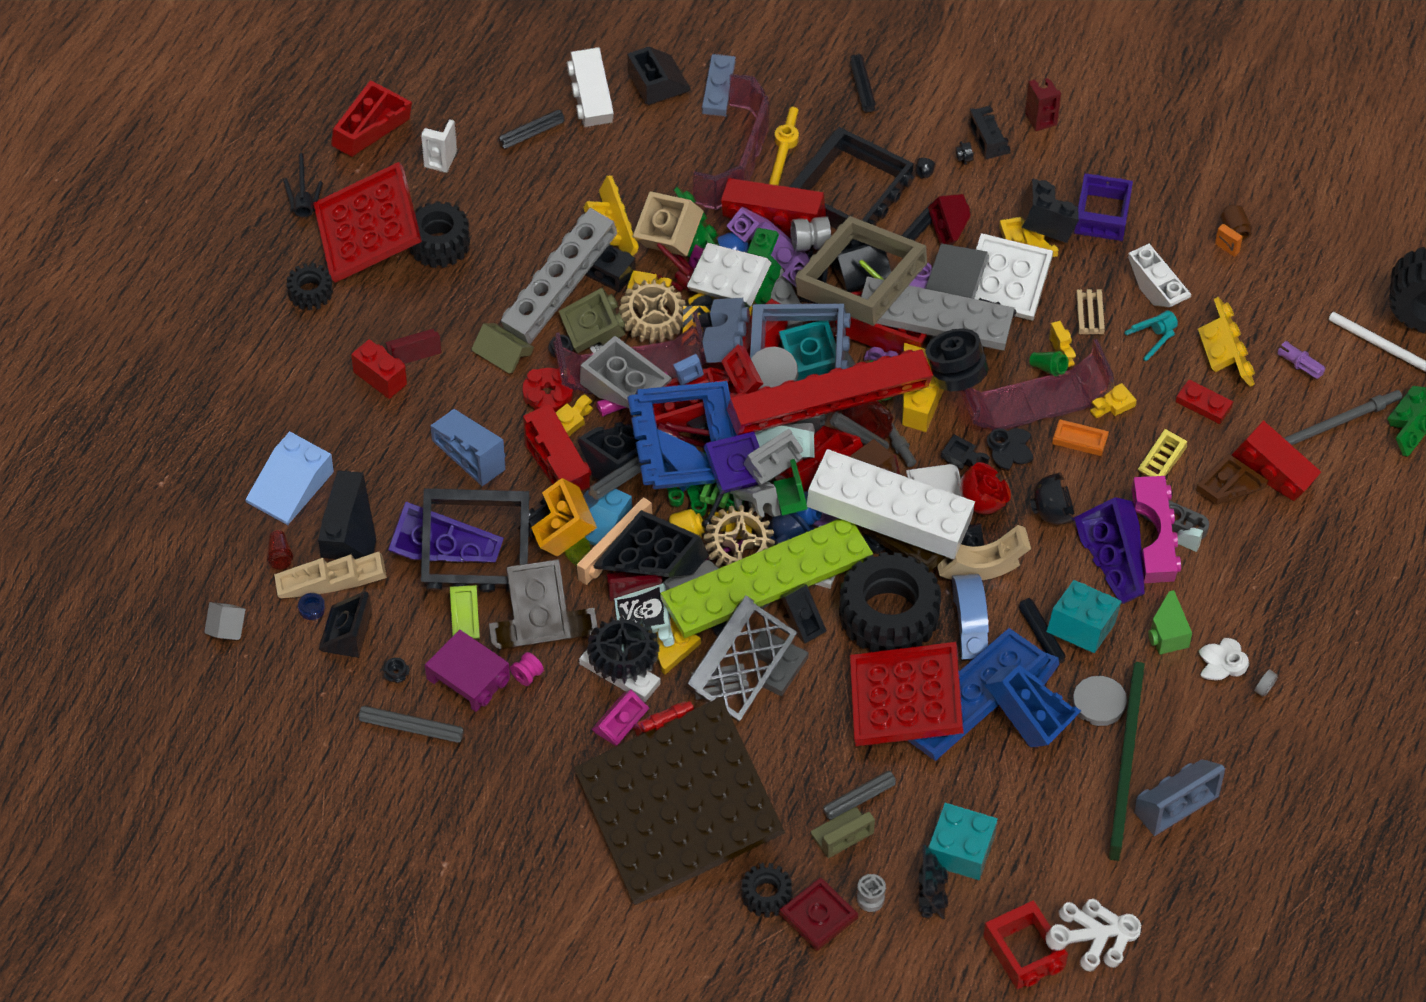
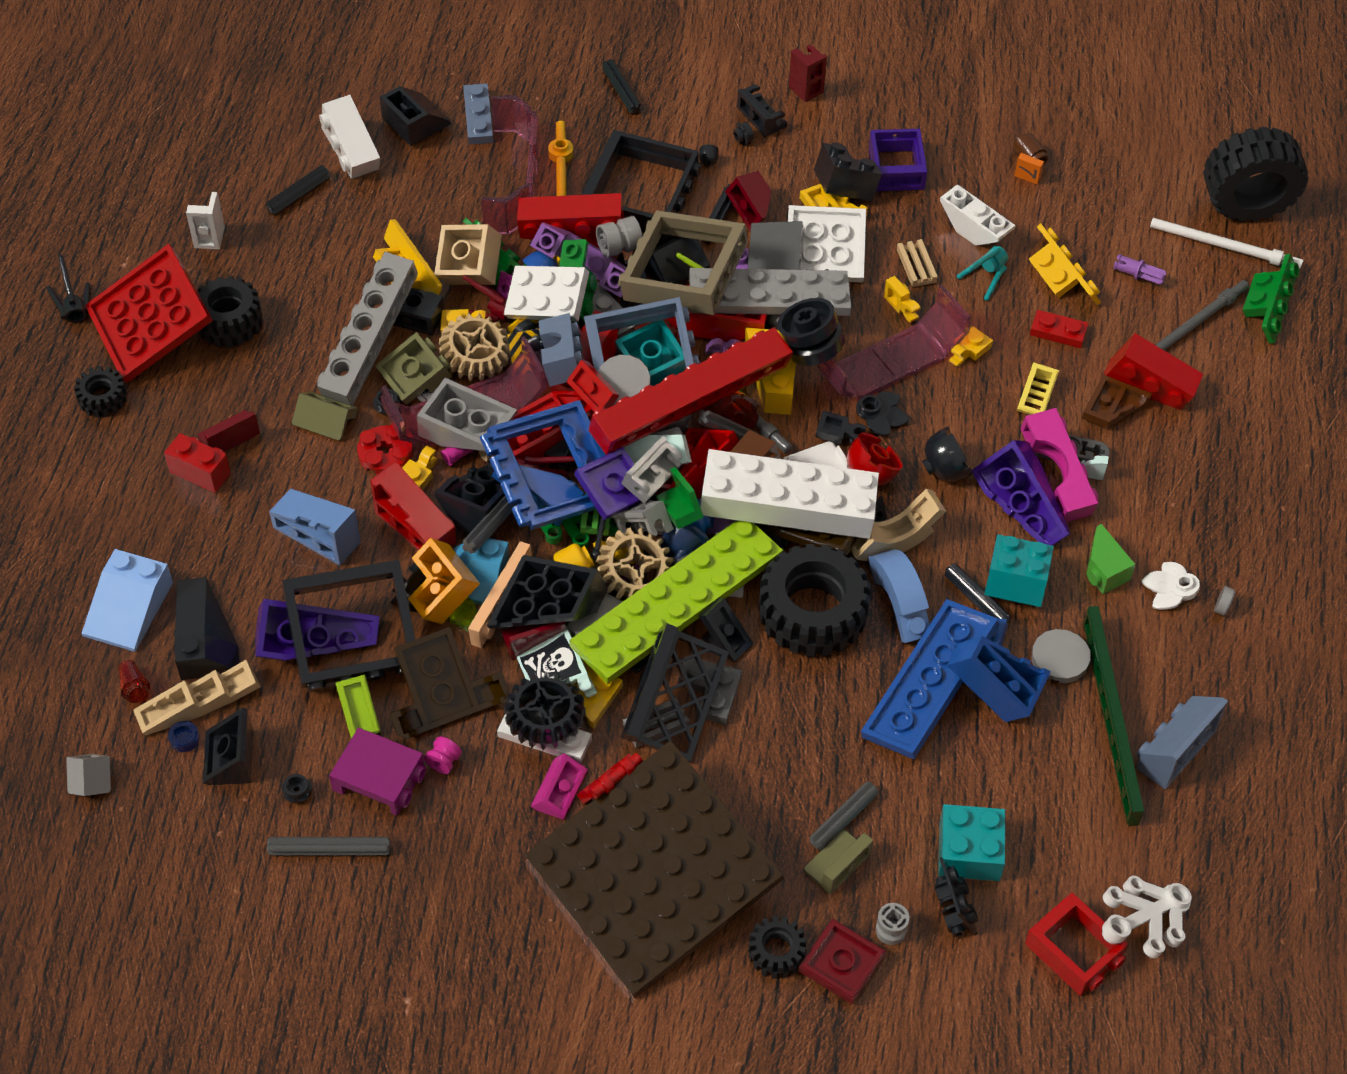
camera: 15 degrees left, 0 degrees up
(370, 118) = (125, 209): red wedge -> none
(688, 369) = (532, 397): medium blue tile -> none
(906, 694) = (862, 693): red plate -> none
(1050, 362) = (895, 319): green cone -> none
(1080, 437) = (949, 388): orange tile -> none

